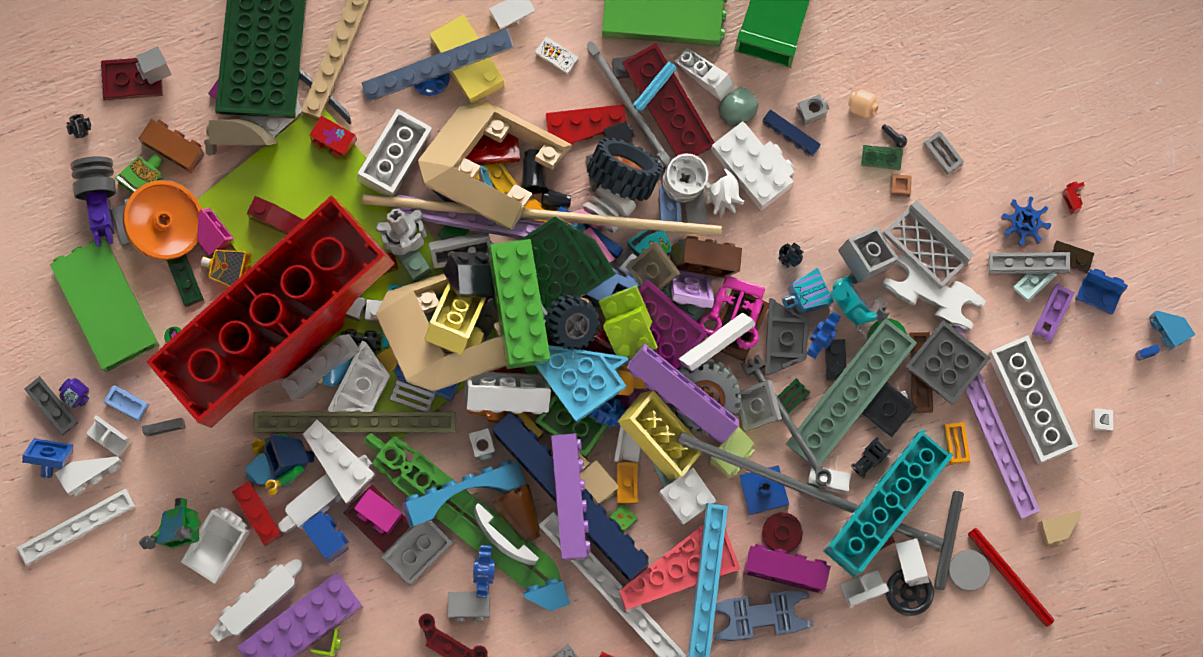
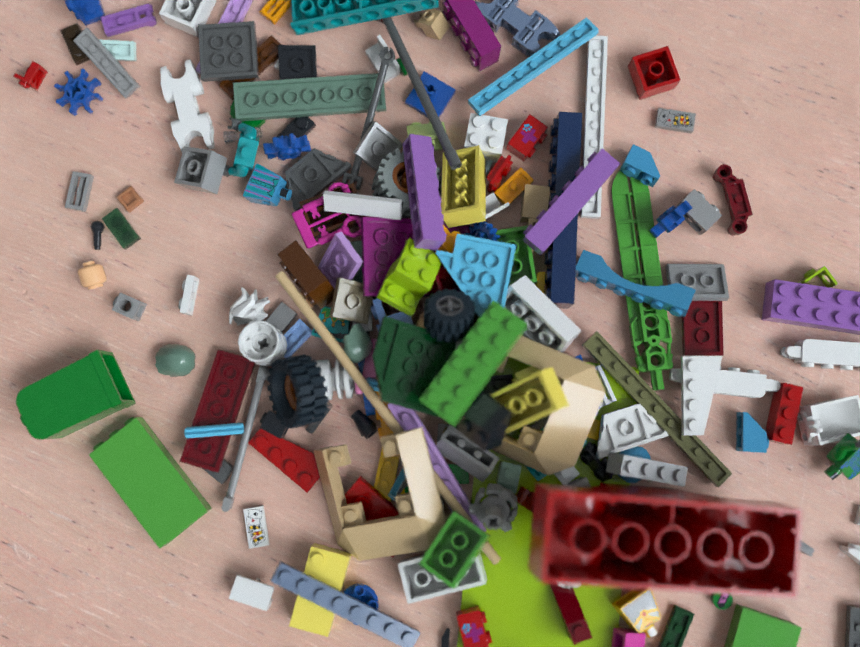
camera: 130 degrees left, 5 degrees up
(74, 393) = (834, 630): dark purple head -> none
(108, 437) = (835, 573): white panel -> none
(126, 403) = (805, 590): light blue plate -> none
(285, 457) = (730, 431): dark blue torso -> none
(325, 537) = (754, 348): blue brick -> none
(378, 511) = (702, 329): dark pink brick -> none
(402, 172) = (454, 550): none -> bright green brick
(479, 436) = (580, 314): white brick -> none
(519, 512) = (606, 235): reddish brown cone -> none
(522, 555) = (633, 207): white slope -> none
(533, 173) = (360, 456): black plant -> none
(617, 244) = (357, 344): none -> sand green hair
(623, 517) = (539, 168): bright green slope -> none
(649, 484) = (500, 169): none -> red piece
(656, 530) = (527, 137): none -> red brick
(674, 571) = (542, 99): coral wing -> none
(705, 74) = (171, 406): white slope -> none
(752, 166) = (209, 309): white brick -> none
(782, 532) = (446, 60): dark red tile -> none
(790, 255) = (250, 224): black gear -> none
(791, 133) = (161, 306): dark blue piece -> none
(801, 387) = (337, 135): dark green tile -> none
(816, 544) = (432, 23): none -> tan brick
(873, 454) = (340, 47): black connector -> none
(937, 235) = (143, 140): light grey fence -> none

